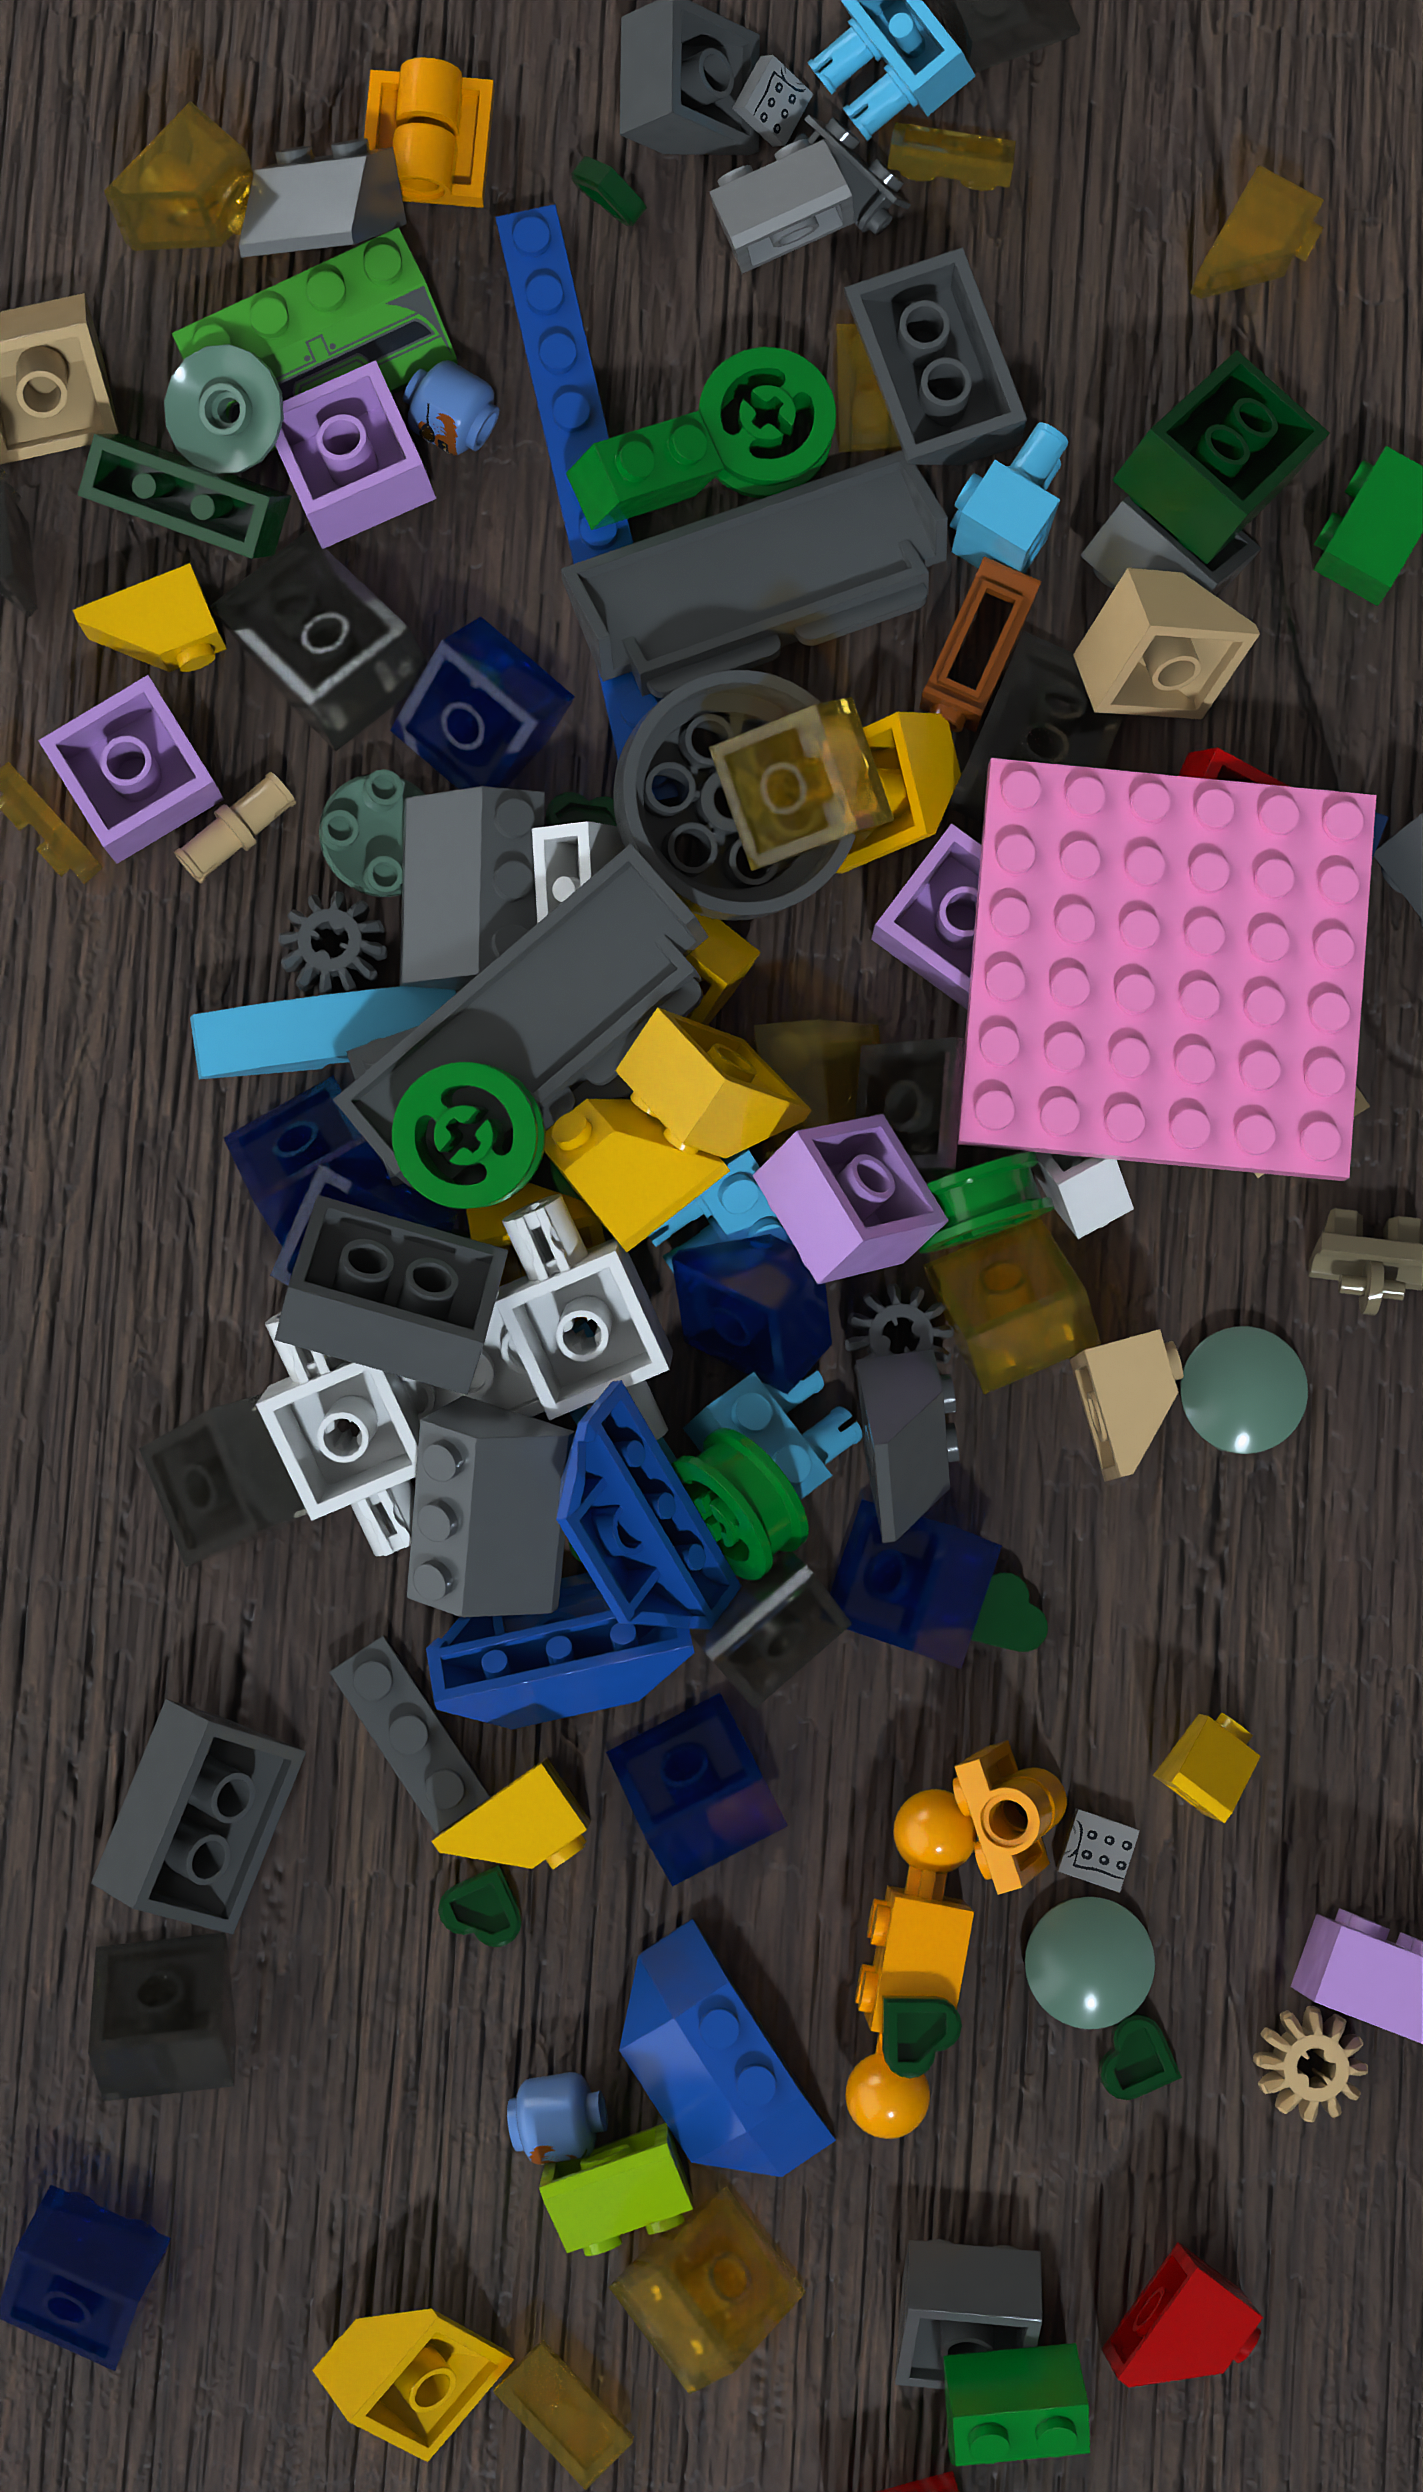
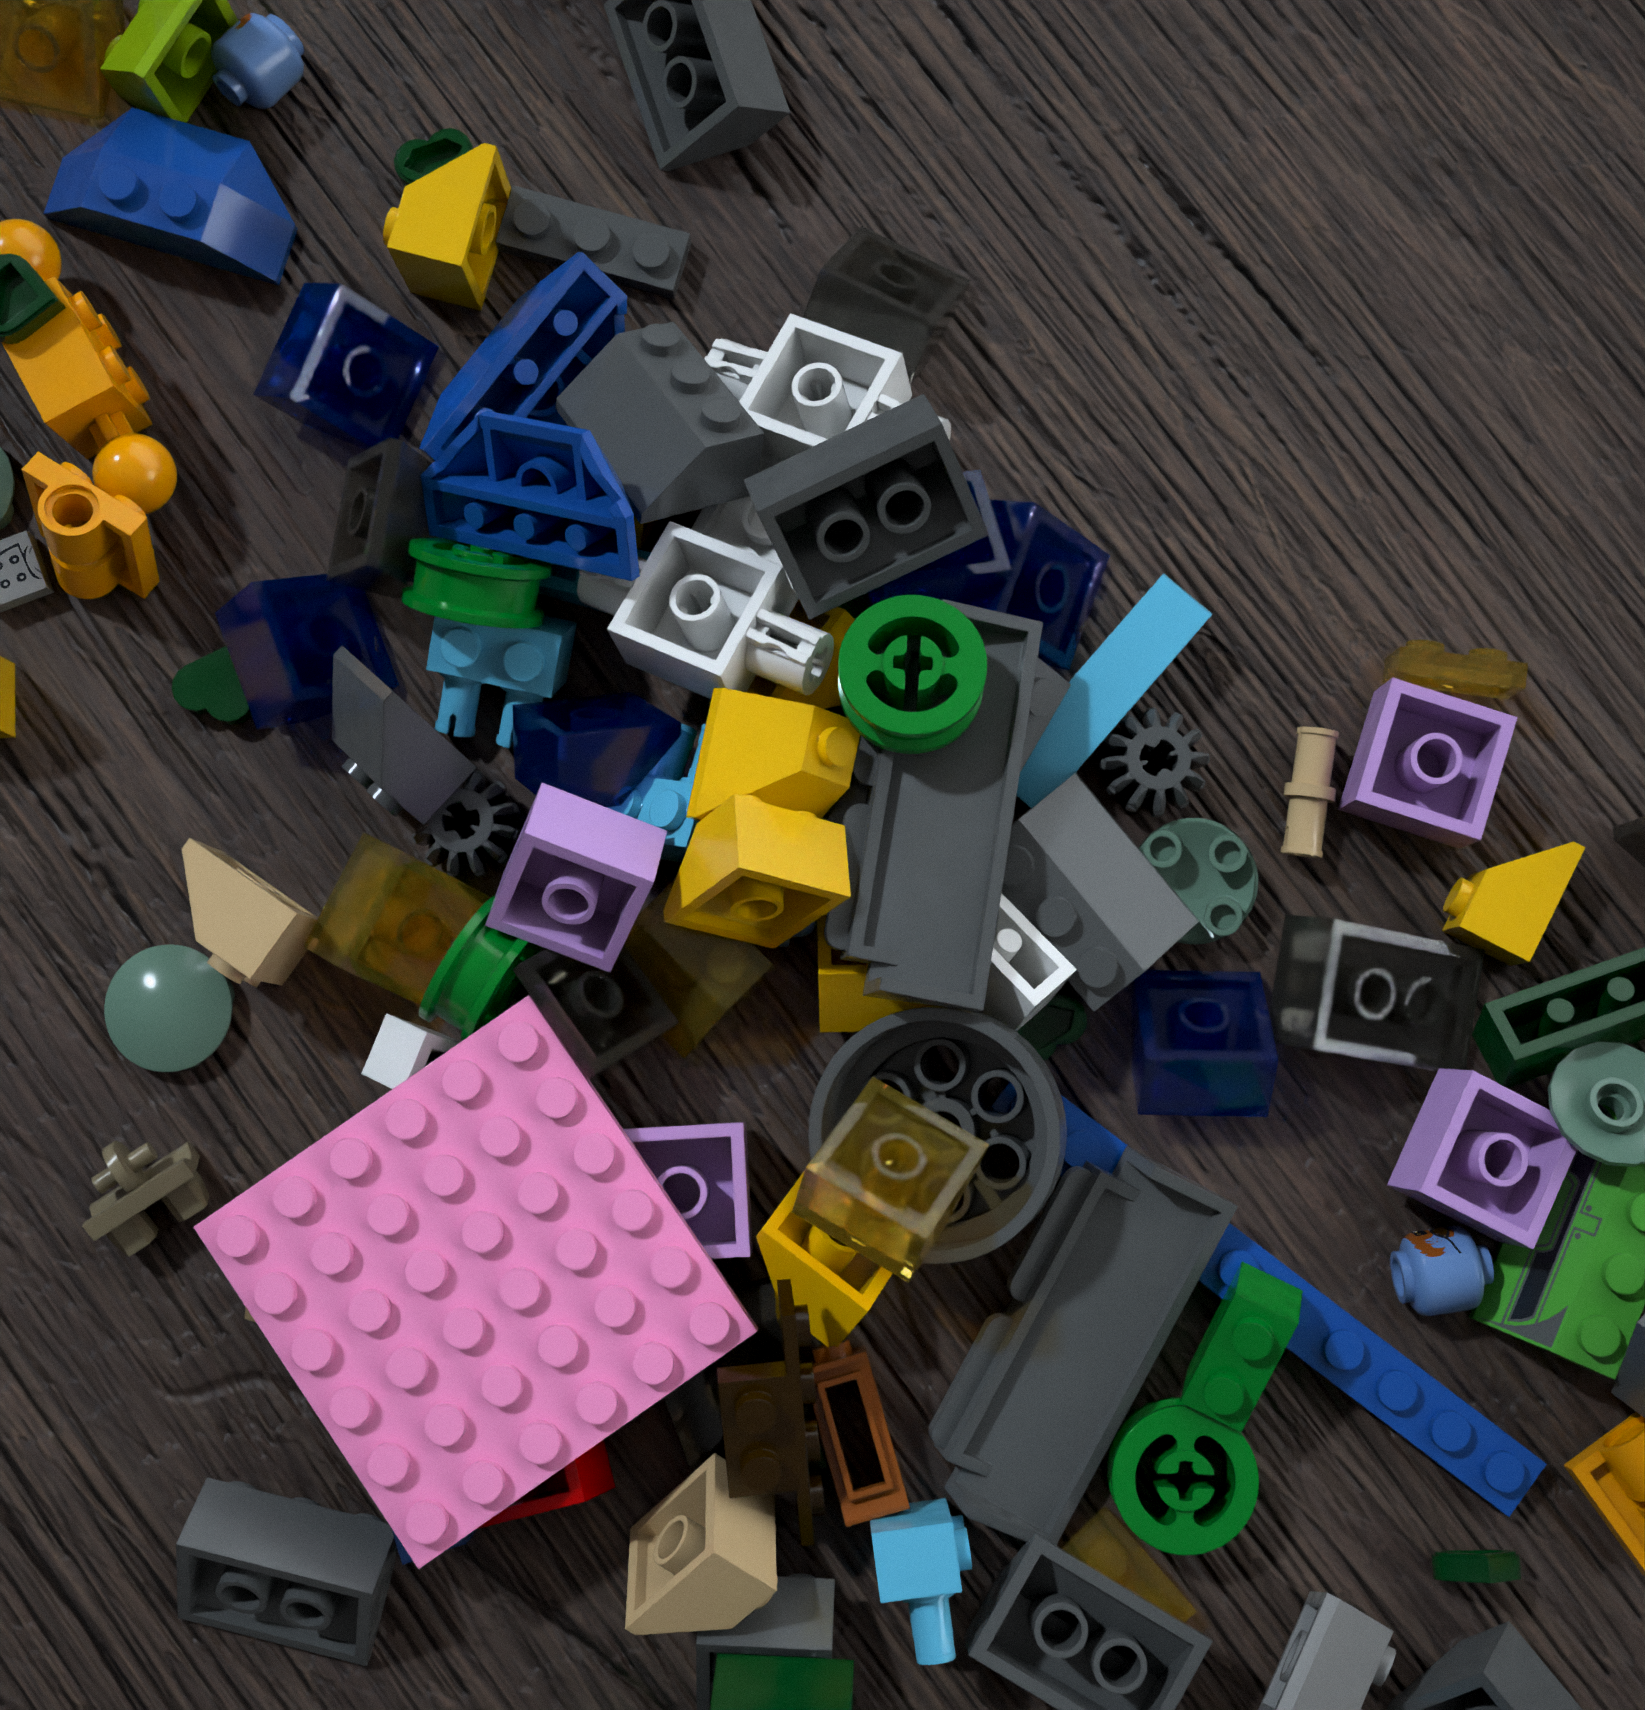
camera: 145 degrees right, 0 degrees up
(1038, 691) = (765, 1422): none -> dark brown bracket

